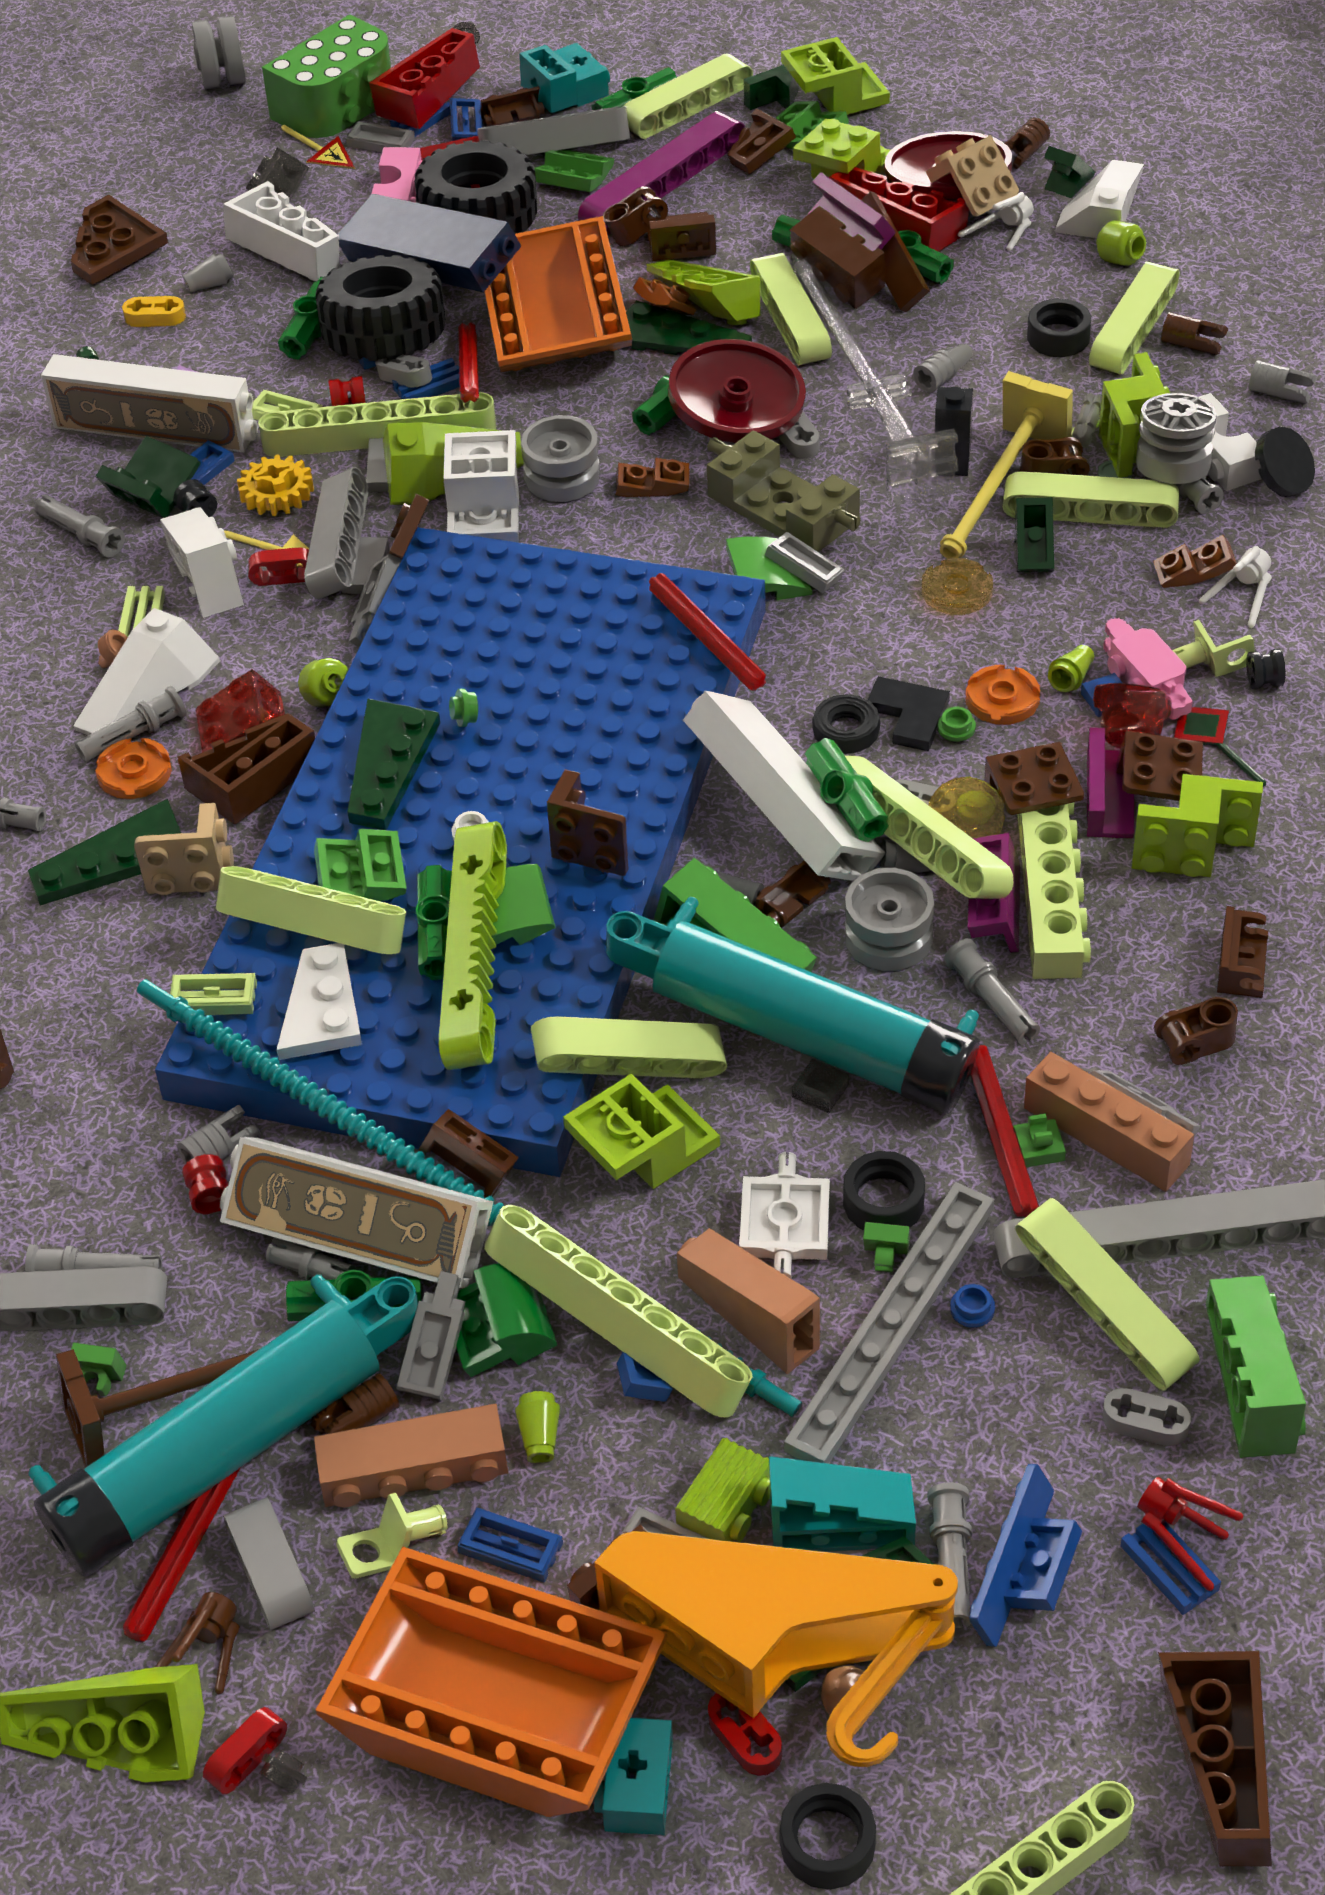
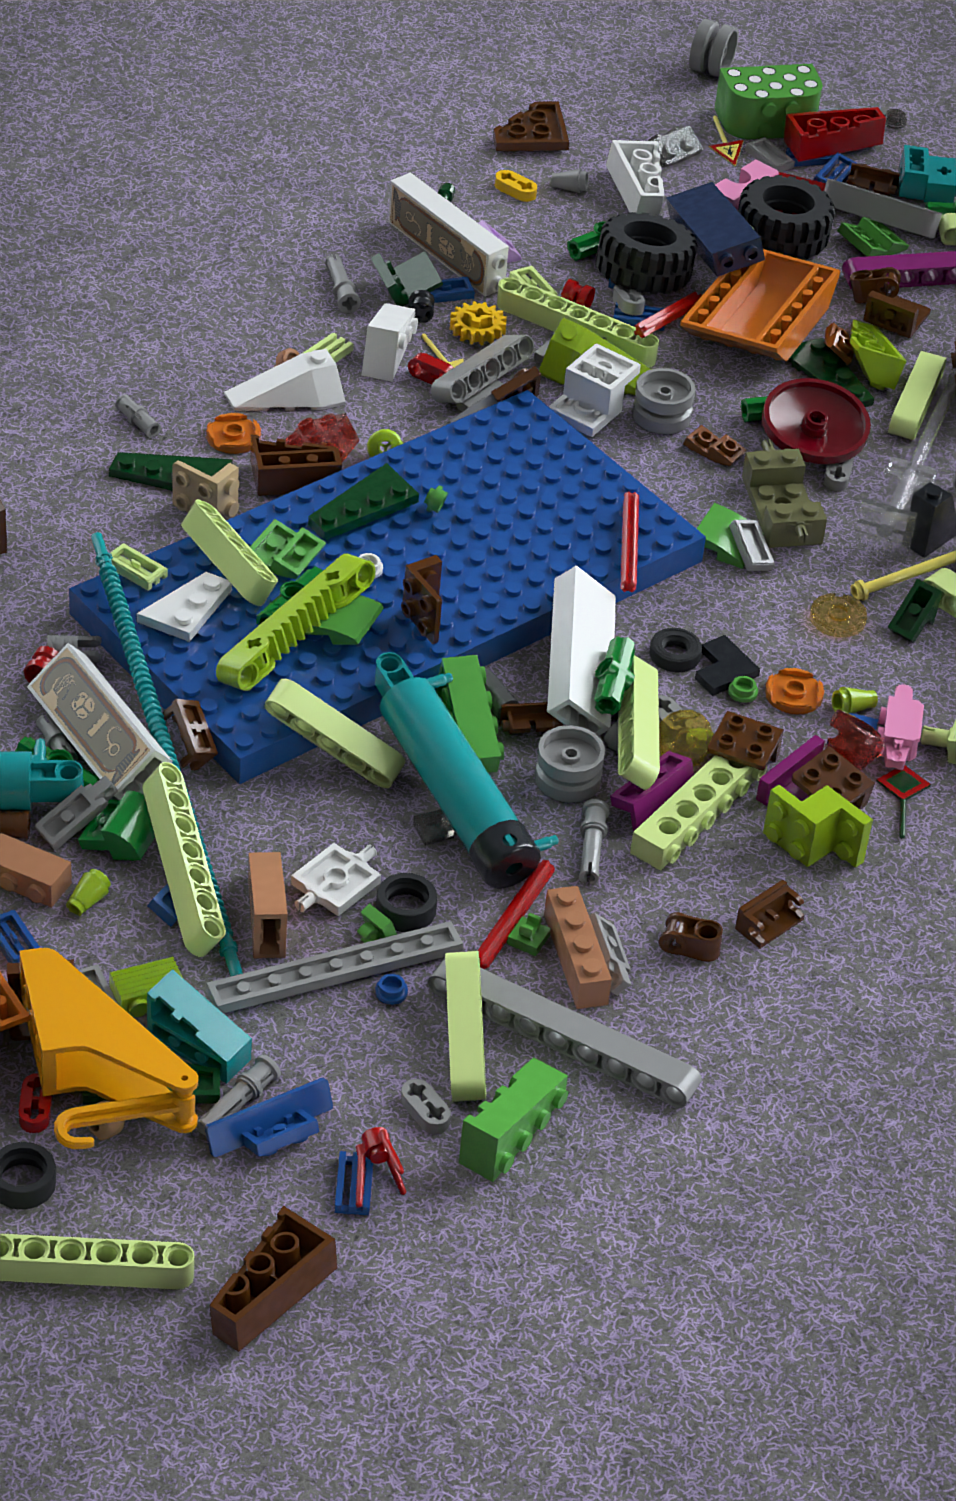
camera: 30 degrees right, 5 degrees down
(145, 717) = (268, 408): light grey pin -> none
(641, 1131) = (291, 772): lime bracket -> none

